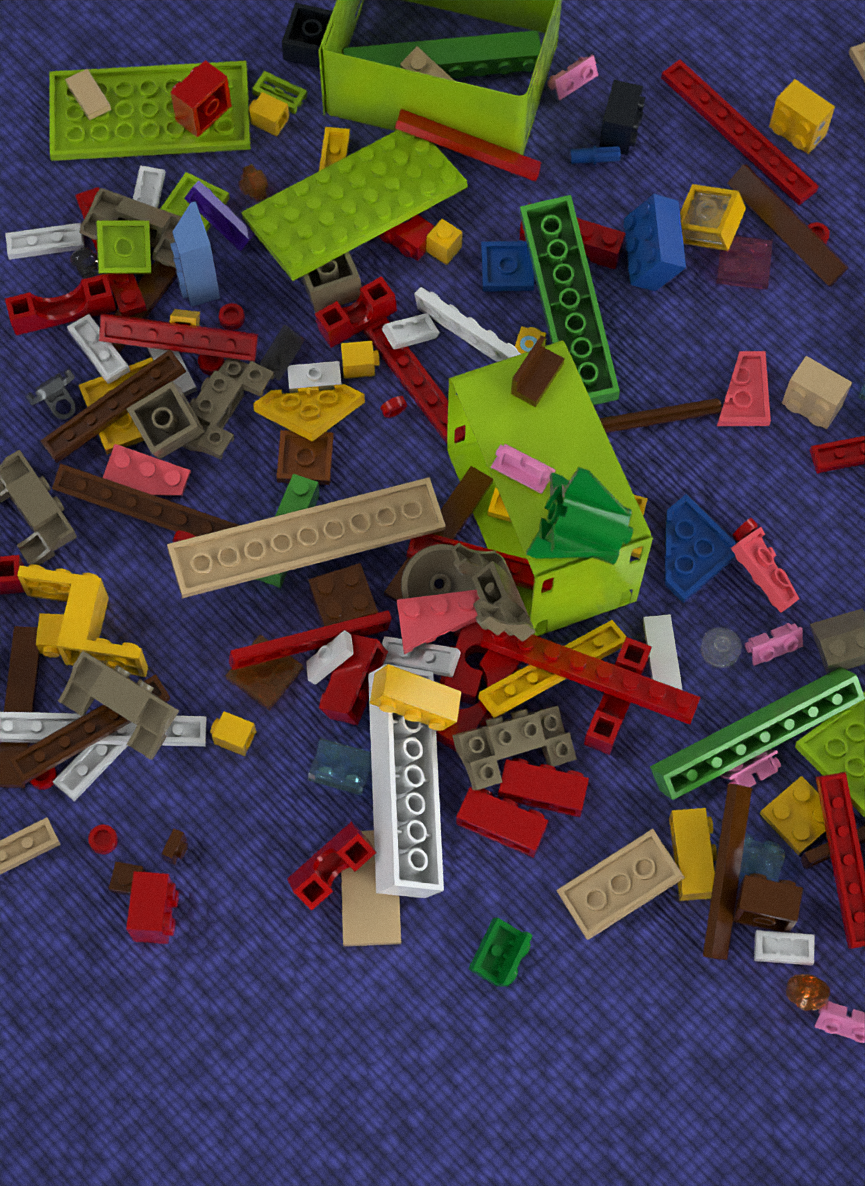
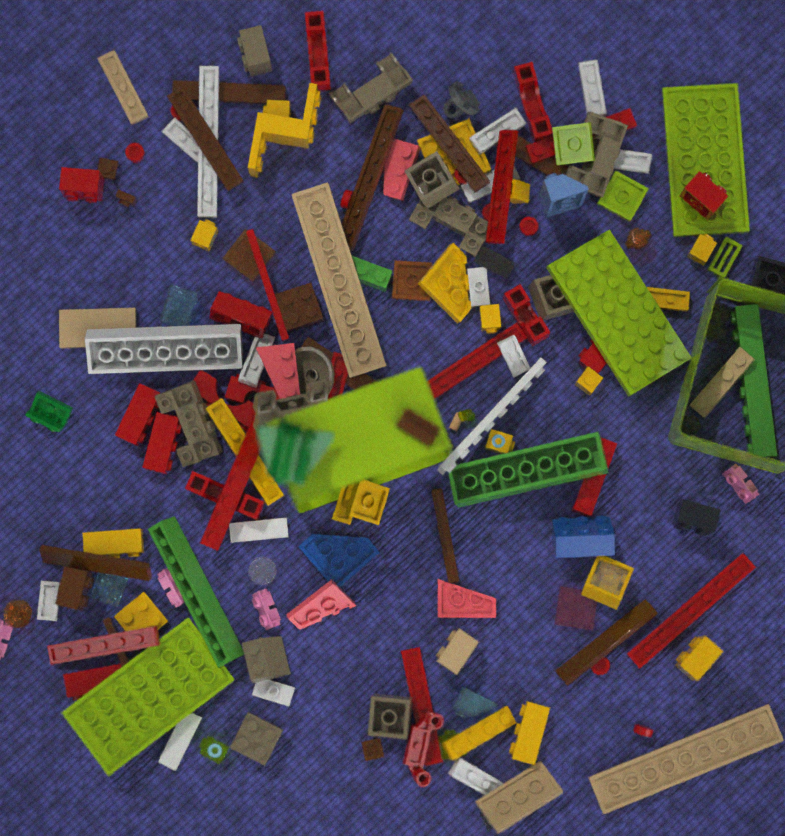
camera: 90 degrees right, 15 degrees up
(85, 262) = (572, 117): clear smoke piece -> none
(88, 94) = (714, 112): tan tile -> none
(132, 700) = (221, 157): dark tan bracket -> none
(220, 216) = (607, 214): dark purple plate -> none
(329, 657) = (255, 298): white plate -> none
(345, 850) = (98, 288): red arch -> none
(393, 407) = (451, 343): red tile -> none
(415, 697) = (213, 353): yellow brick -> none
(468, 145) = (669, 398): red tile -> none
(506, 266) = (568, 423): blue plate -> none
(522, 468) = (345, 415): bright pink hinge -> none
(595, 154) = (668, 498): blue axle -> none
(620, 884) = (92, 492): tan tile -> none
(745, 529) = (351, 593): red tile -> none

